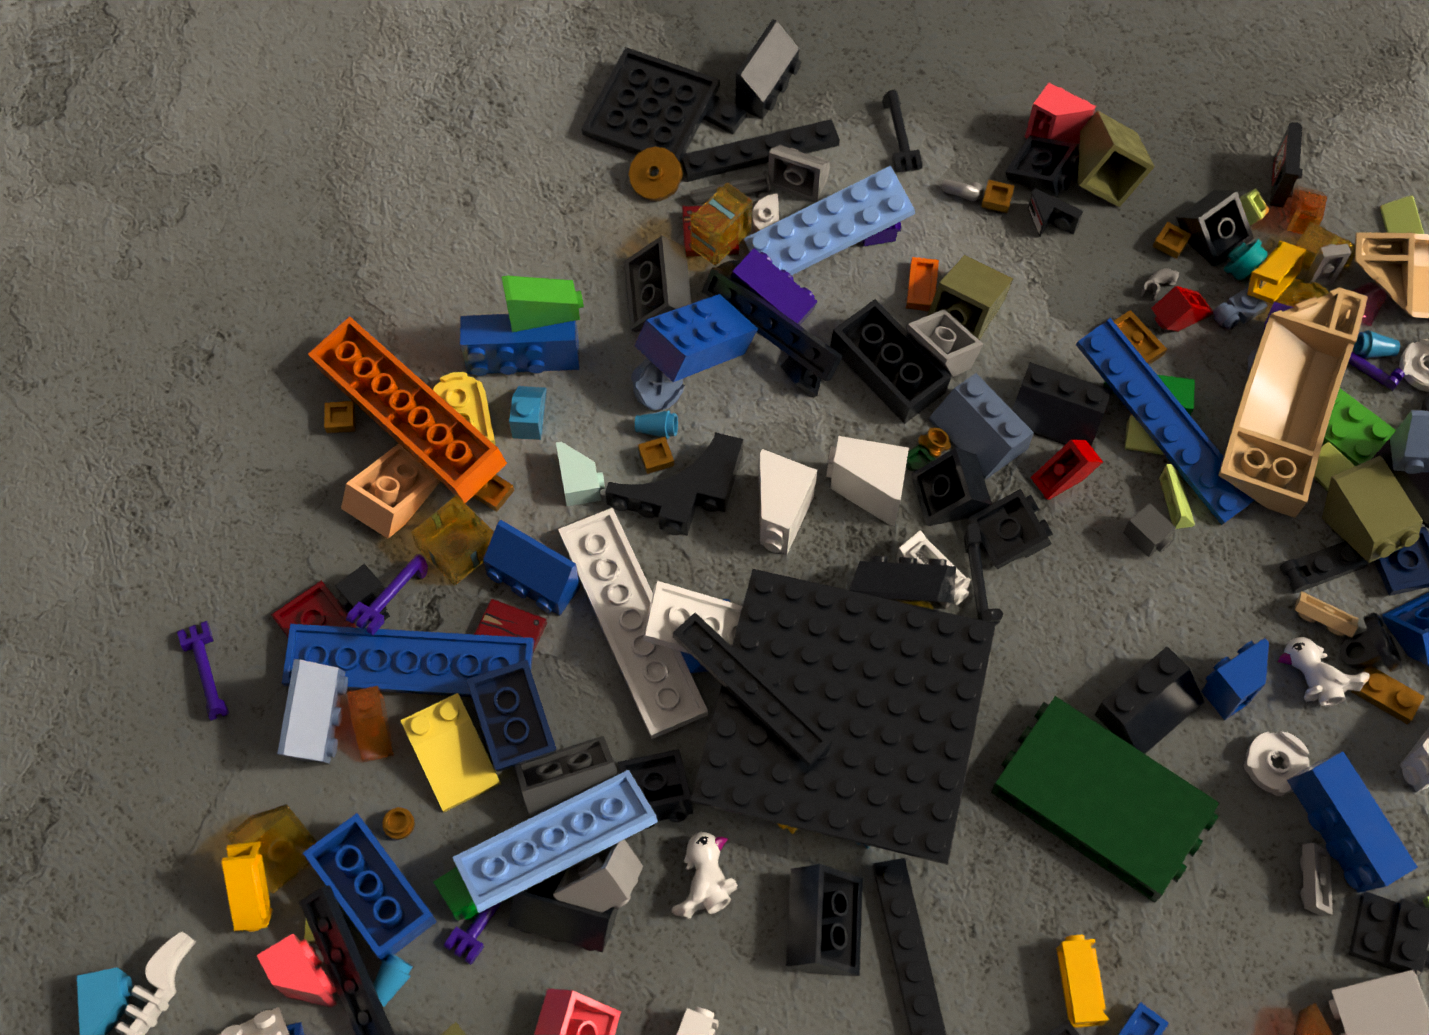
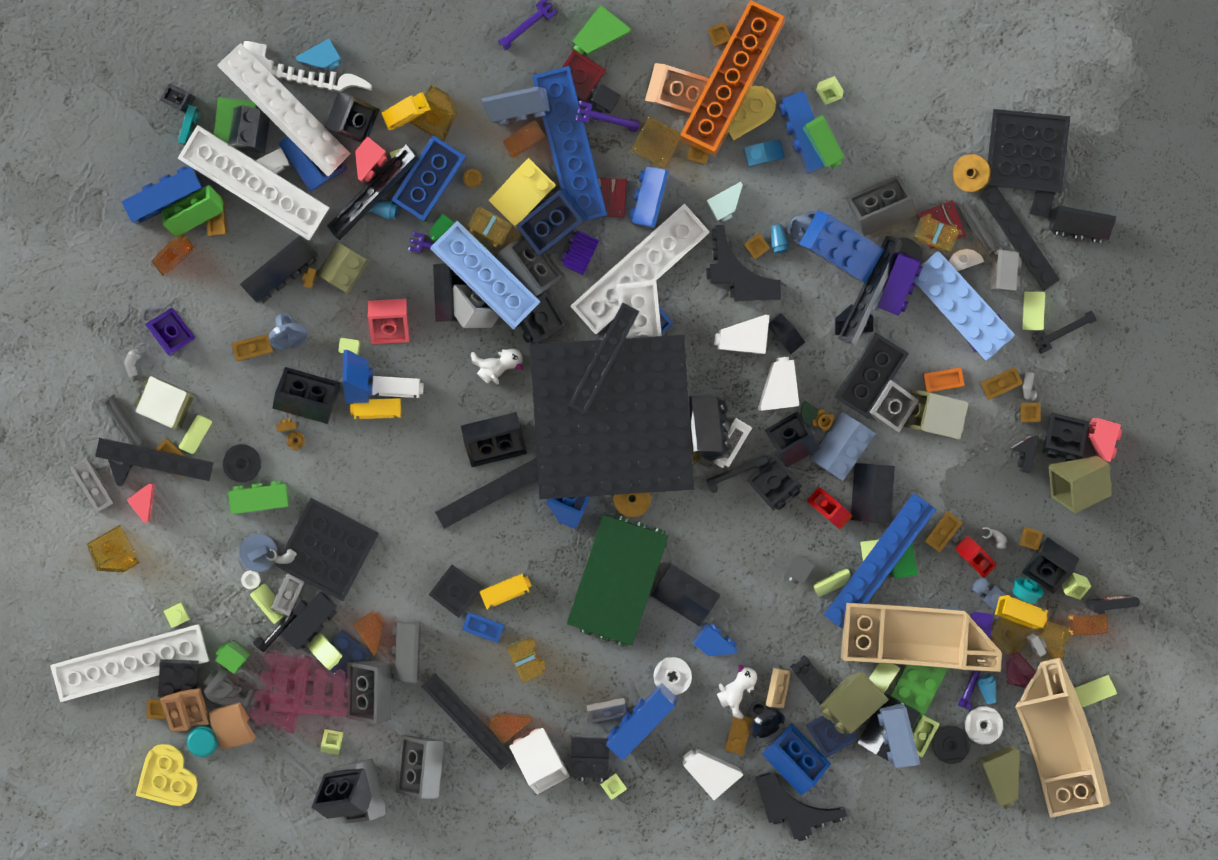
camera: 70 degrees right, 25 degrees up
(220, 984) = (351, 117): none -> black slope
(262, 568) = (599, 32): none -> bright green slope
(476, 303) = (830, 90): none -> yellowish green slope
(482, 811) = (490, 226): none -> clear yellow container
(575, 696) = (580, 252): none -> dark purple brick
(799, 448) = (786, 333): none -> black slope
(862, 156) = (1033, 311): none -> yellowish green slope
(948, 218) = (1001, 383): none -> pearl gold plate
(975, 833) = (568, 510): none -> blue slope
(996, 743) = (635, 508): none -> pearl gold plate
(1208, 980) = (526, 658): none -> clear yellow container

